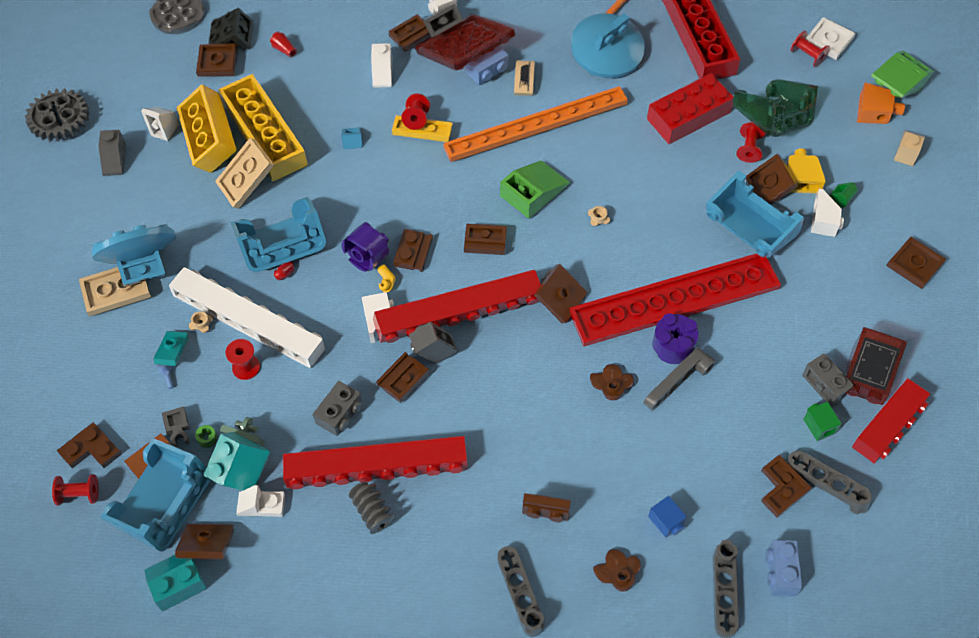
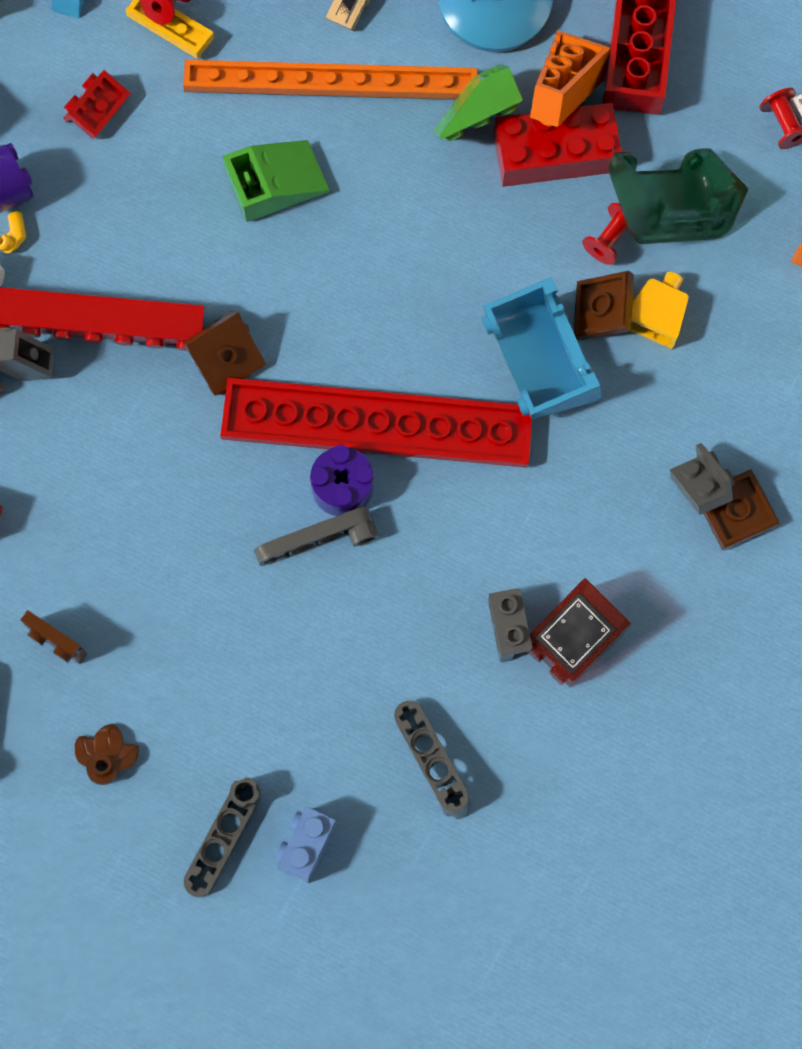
camera: 20 degrees right, 15 degrees up
(400, 186) = (97, 103): none -> red bracket
(413, 250) = (69, 205): reddish brown plate -> none
(485, 239) = (170, 229): reddish brown plate -> none
(598, 211) = (338, 250): tan plate -> none
(612, 381) = (231, 499): reddish brown plate -> none
(635, 98) = (483, 96): none -> bright green slope
(667, 517) = (200, 716): blue brick -> none
(677, 67) = (568, 77): none -> orange wedge
(789, 486) = (377, 745): reddish brown plate -> none
(822, 421) = (470, 675): green brick -> none
(826, 215) = (652, 388): white slope -> none
(844, 193) = (697, 366): green brick -> none
(889, 251) = (704, 481): none -> dark grey bracket
(890, 421) = (559, 716): red brick -> none

